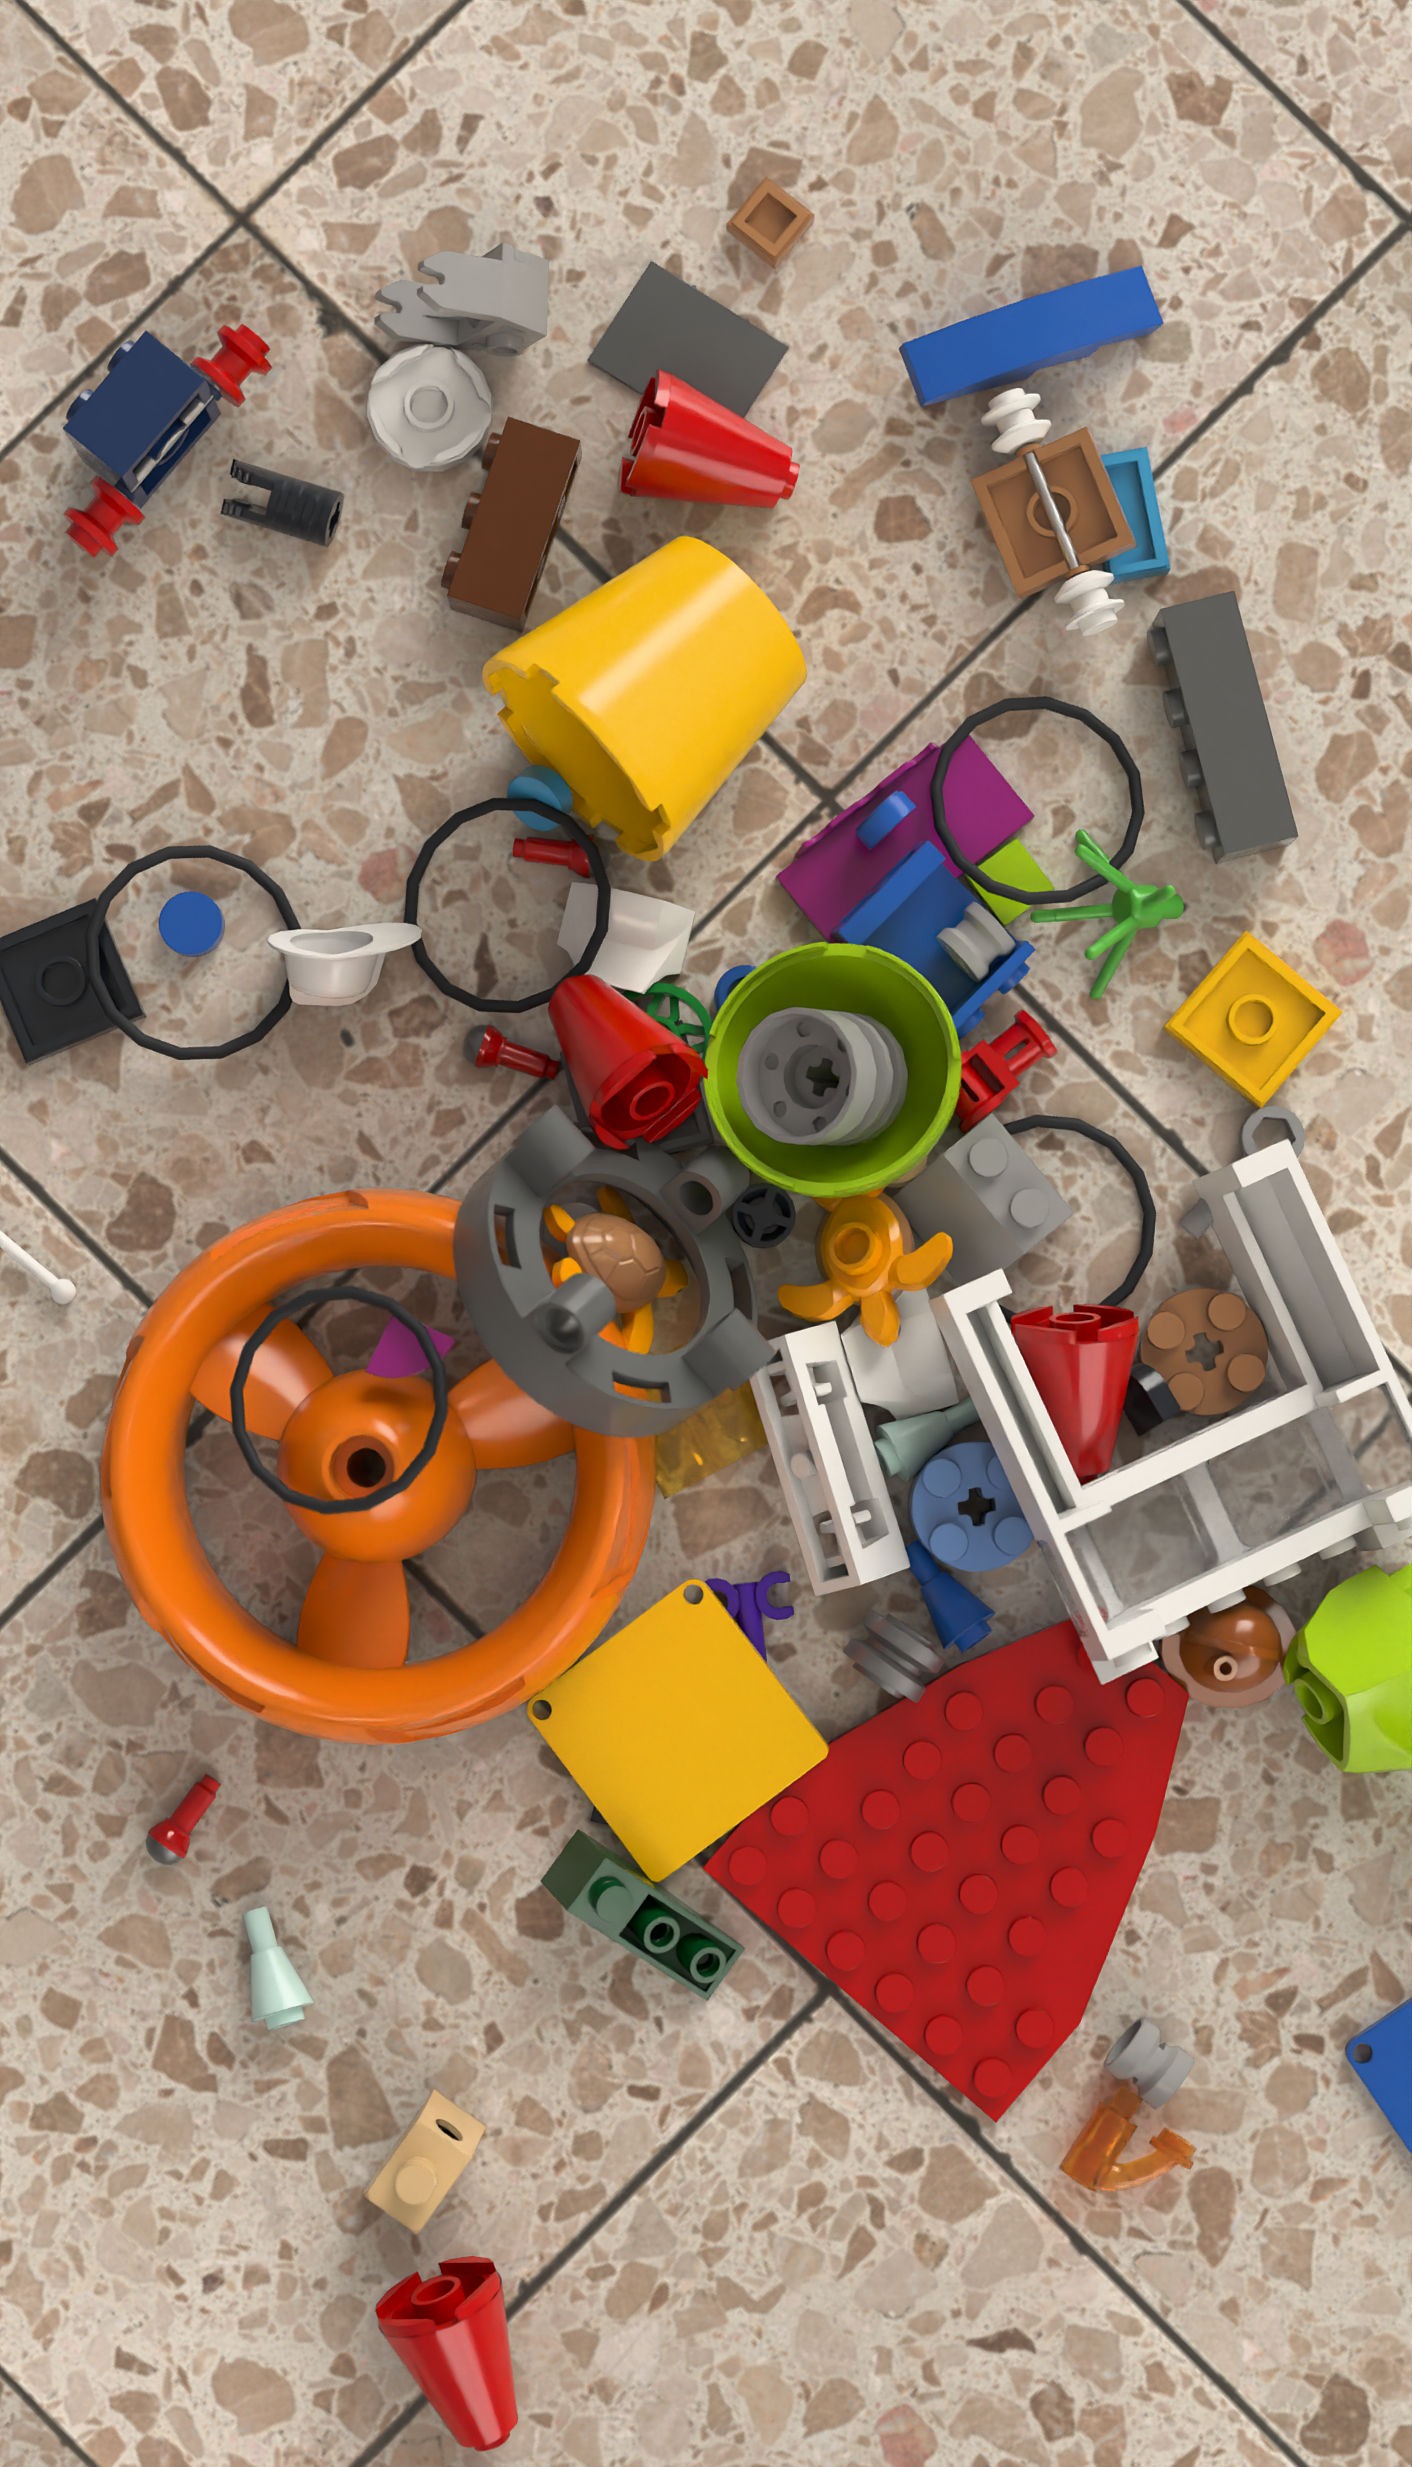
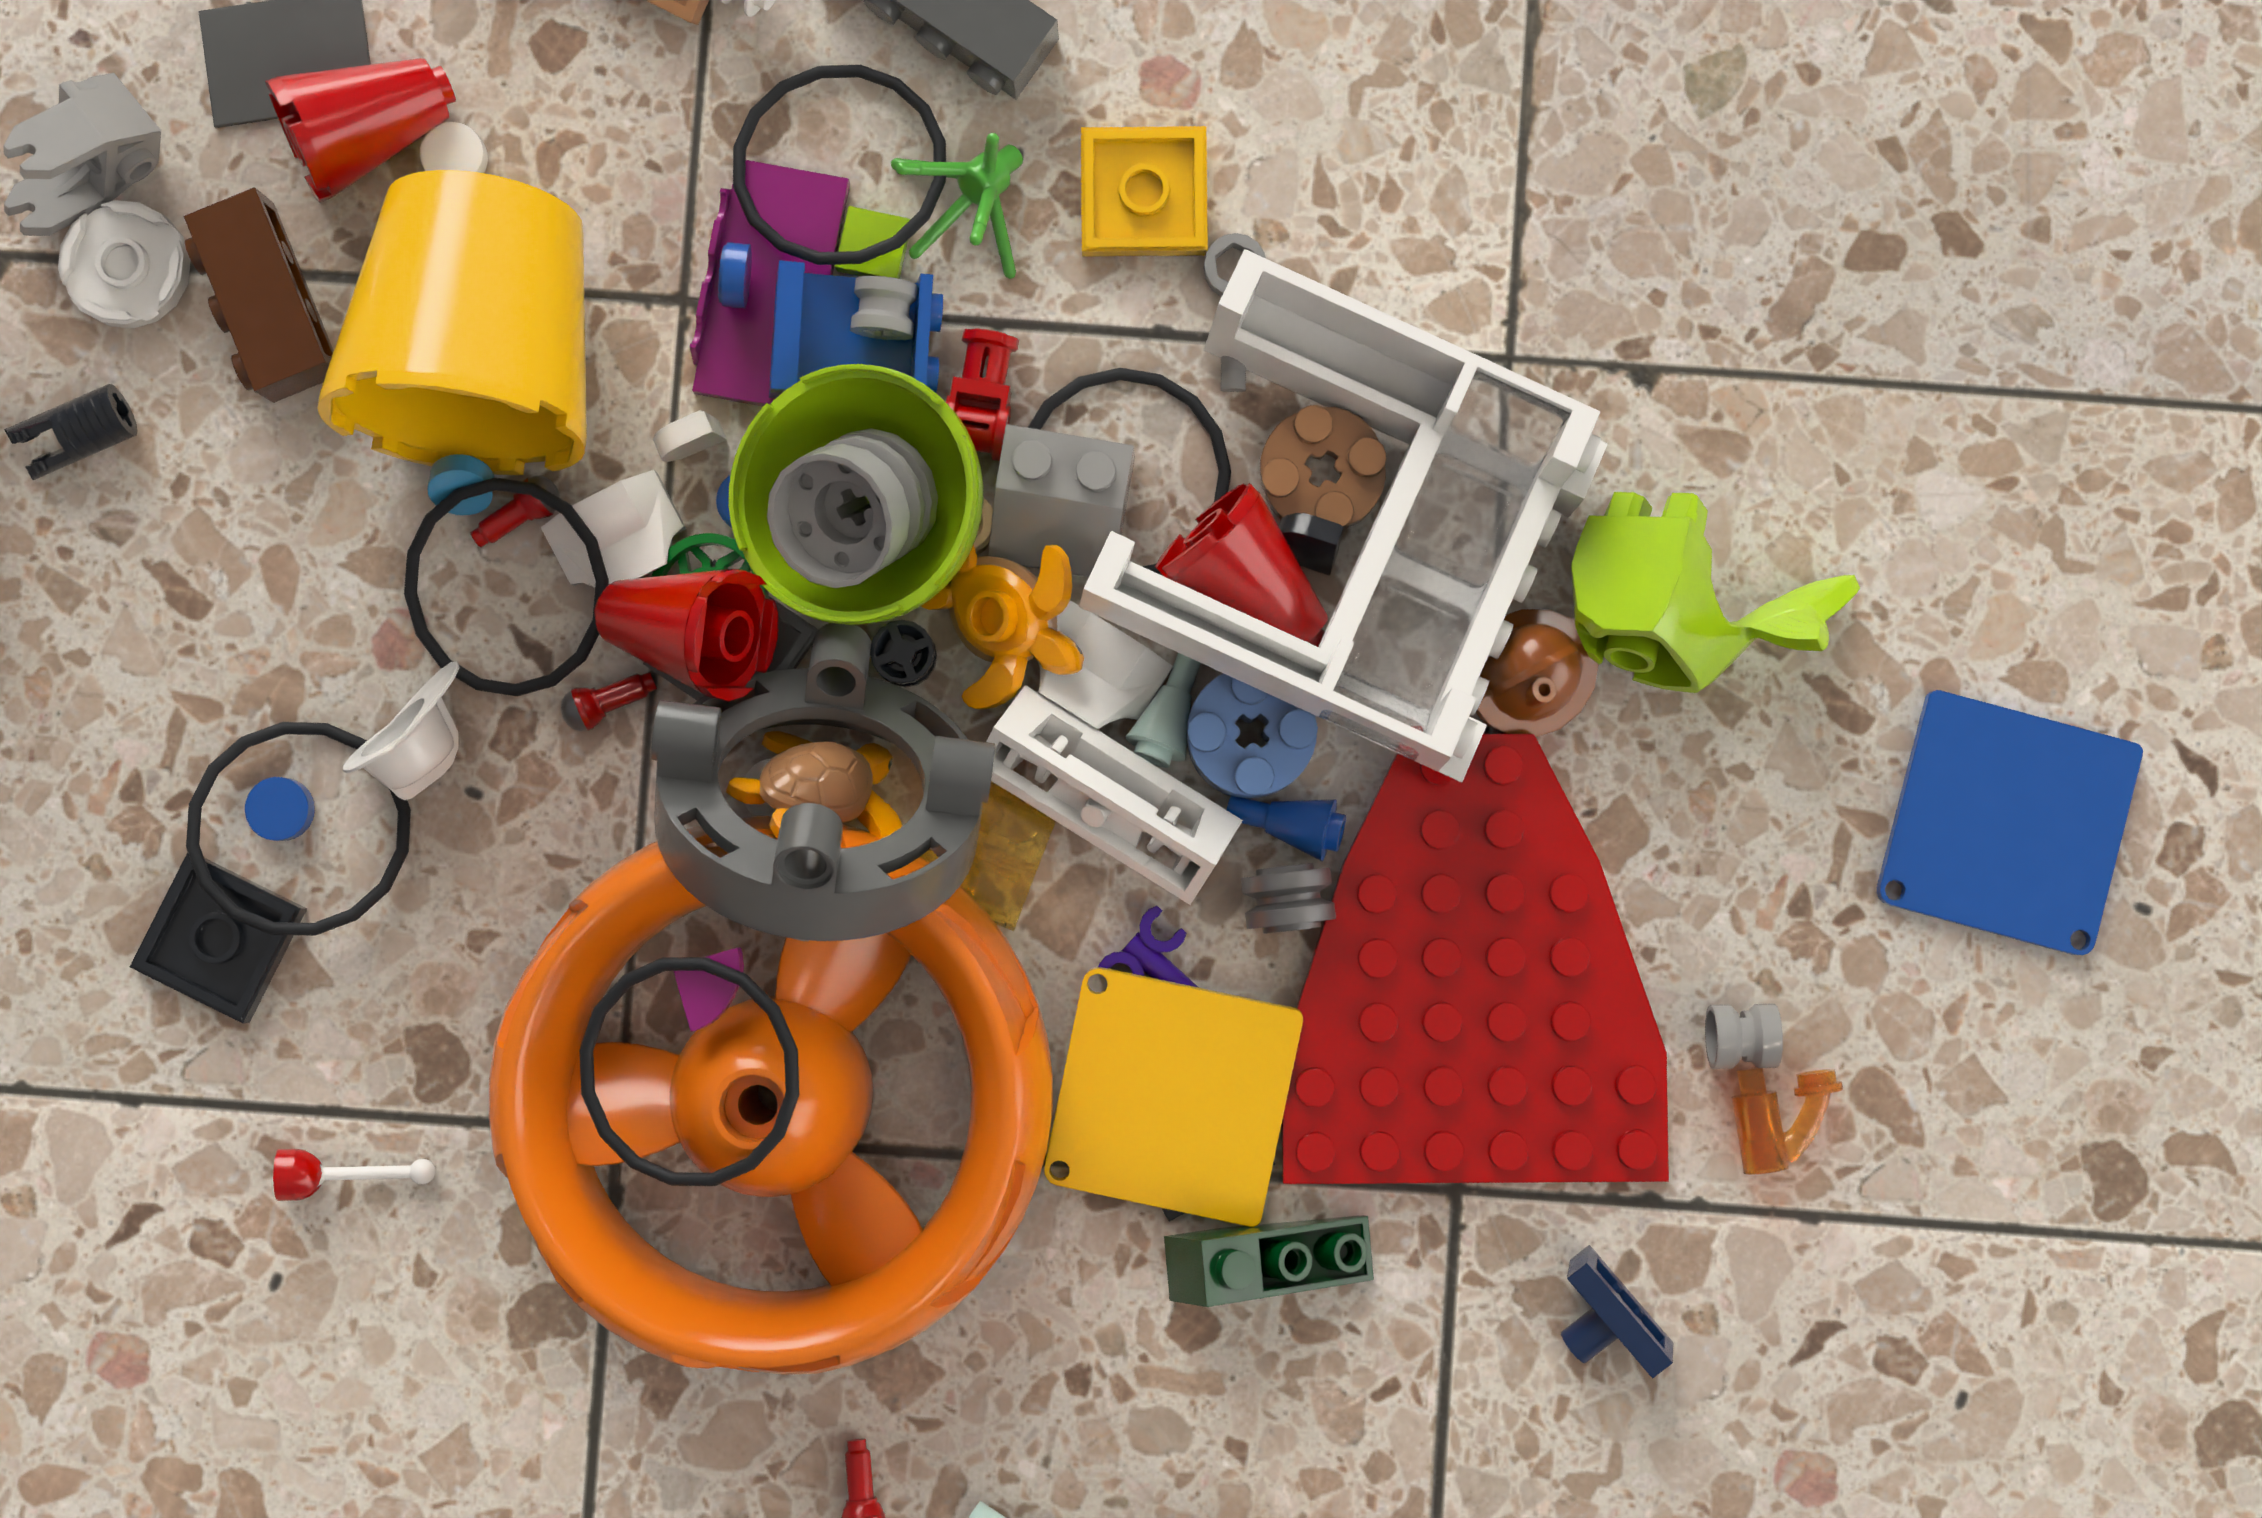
camera: 35 degrees left, 0 degrees up
(743, 909) = (688, 436): none -> white tile
(750, 538) = (453, 148): none -> white tile
(865, 2187) = (1612, 1317): none -> dark blue tile

